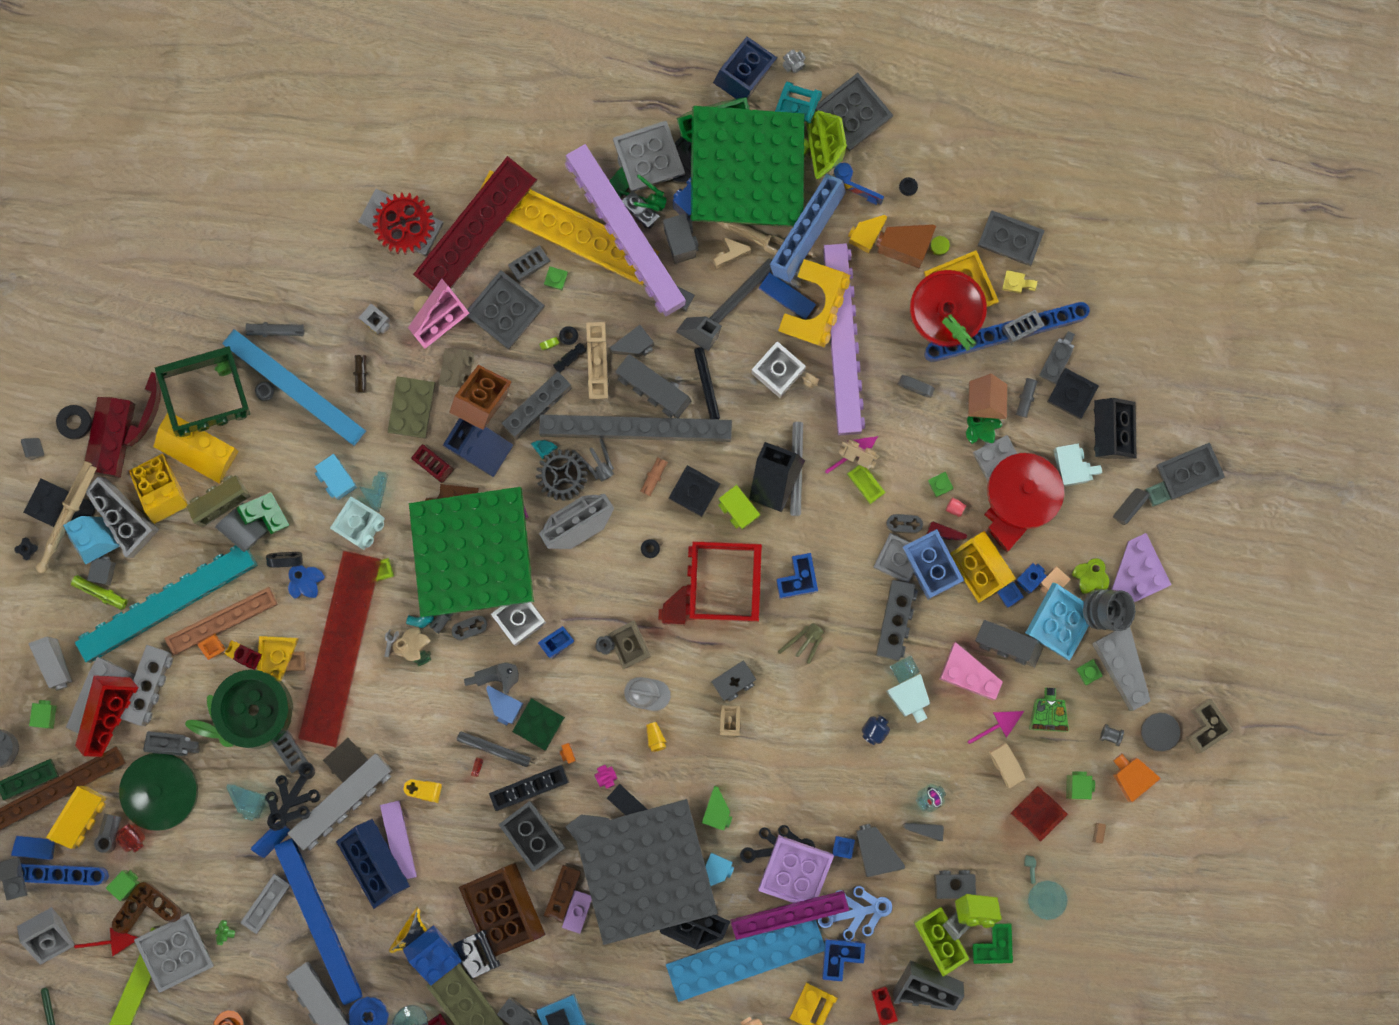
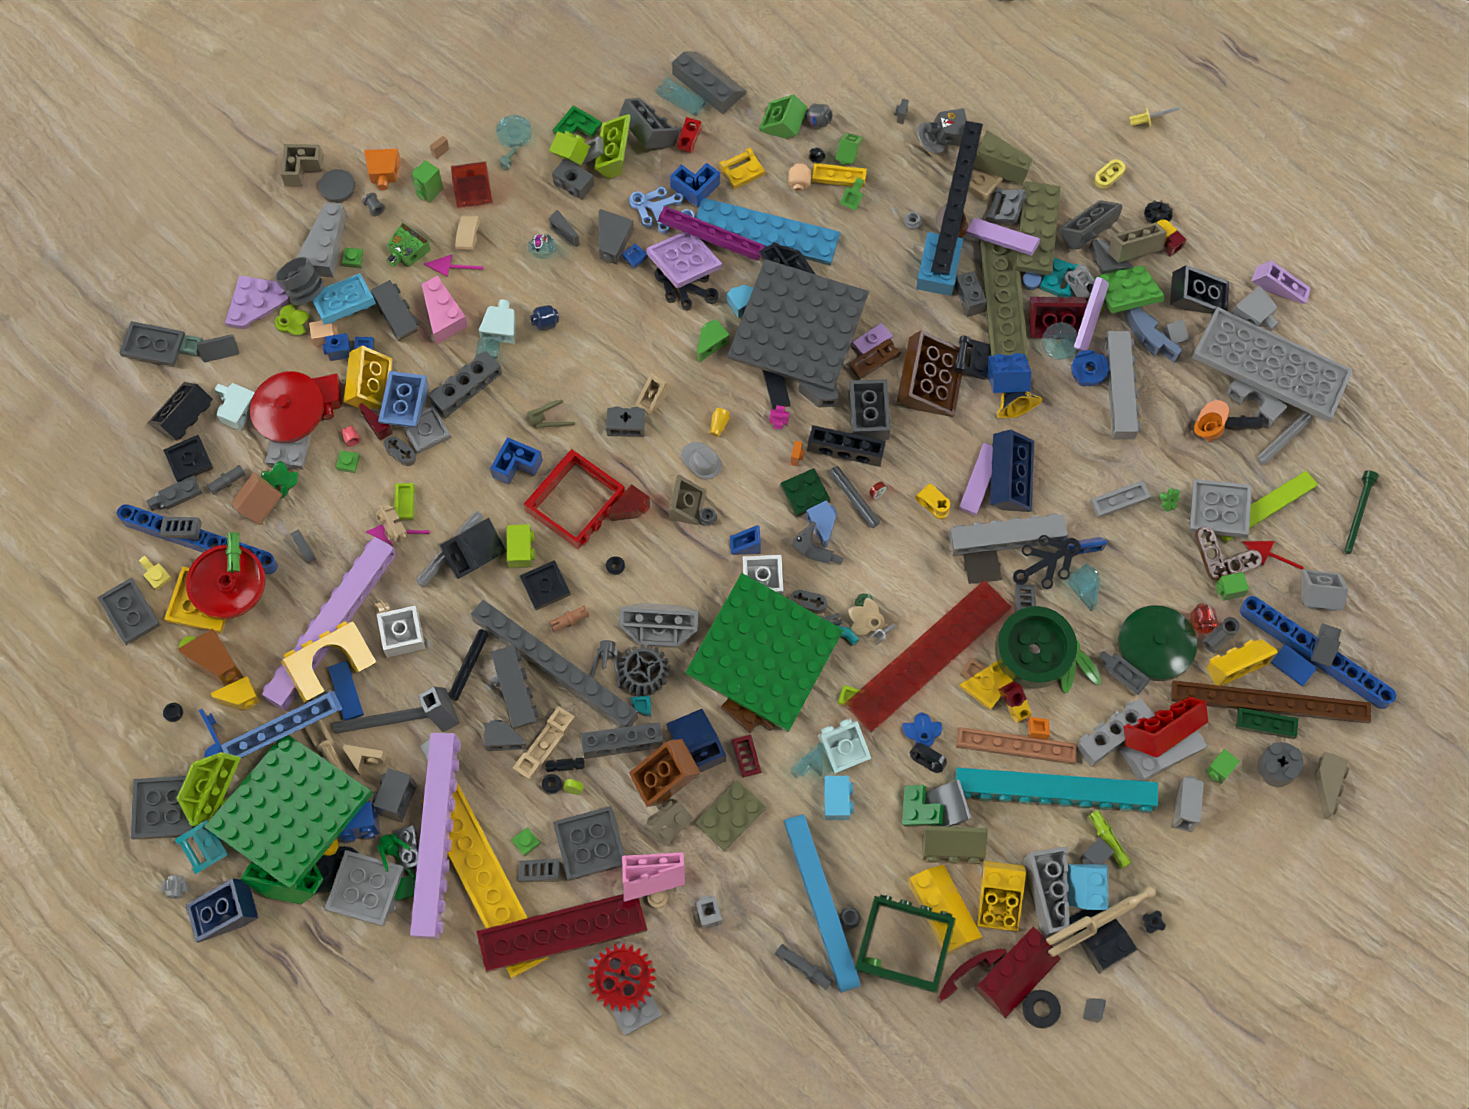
camera: 145 degrees left, 15 degrees down
(318, 921) = (1085, 460): blue beam -> none
(360, 373) = (754, 874): dark brown axle -> none

